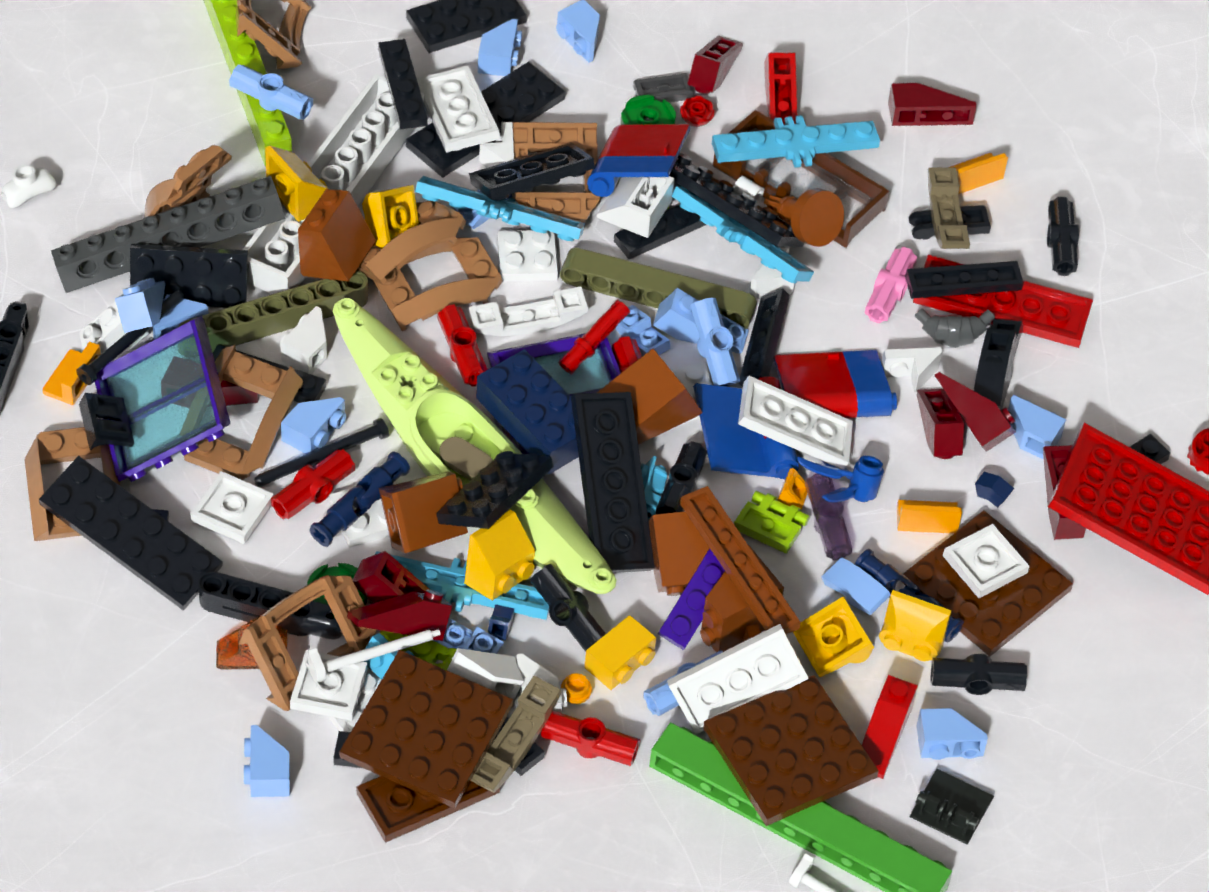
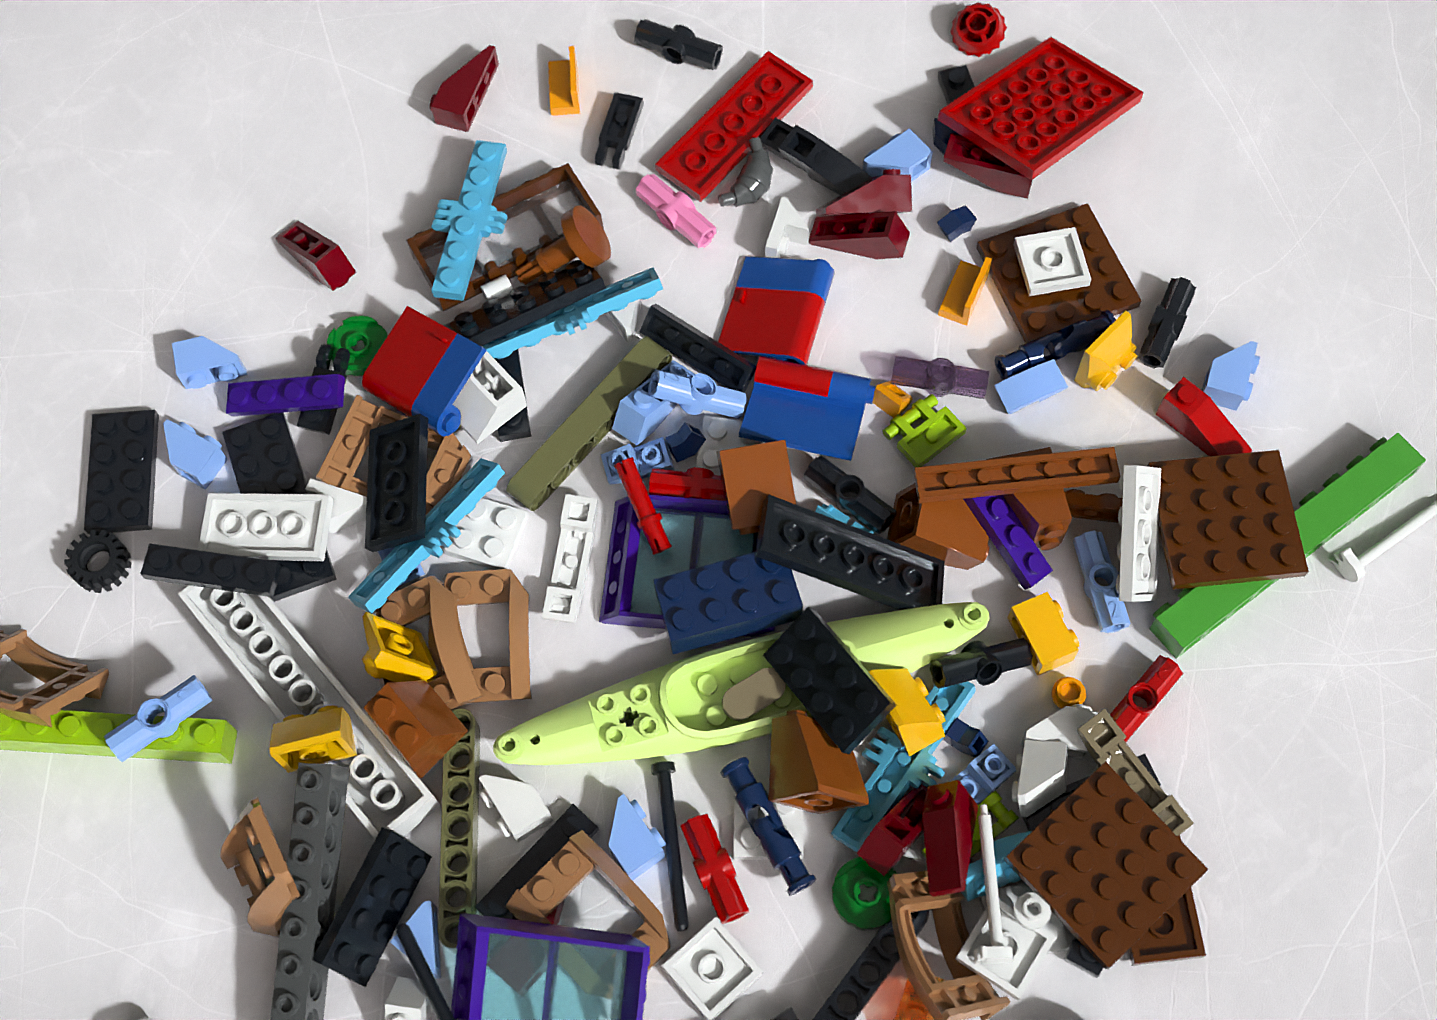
camera: 60 degrees left, 15 degrees up
(141, 304) = (410, 979): light blue slope -> none
(360, 692) = (1027, 920): none -> white plate
(383, 17) = (86, 549): none -> black tyre
(462, 343) = (565, 640): red piece -> none
(576, 84) = (285, 395): none -> dark purple plate
(598, 108) = (322, 420): none -> black hinge
(662, 88) = (318, 338): flat silver tile -> none
(674, 356) = (685, 442): none -> dark blue piece
(697, 111) = (368, 288): red plate -> none
(781, 85) = (384, 208): red slope -> none
(795, 422) = (830, 360): white plate -> none
(833, 638) = (1091, 425): yellow slope -> none
(863, 480) = (913, 333): blue plant -> none
(946, 209) = (617, 127): dark tan slope -> none
(951, 806) = (1306, 405): pearl dark grey hinge -> none
(964, 279) = (708, 144): black plate -> none

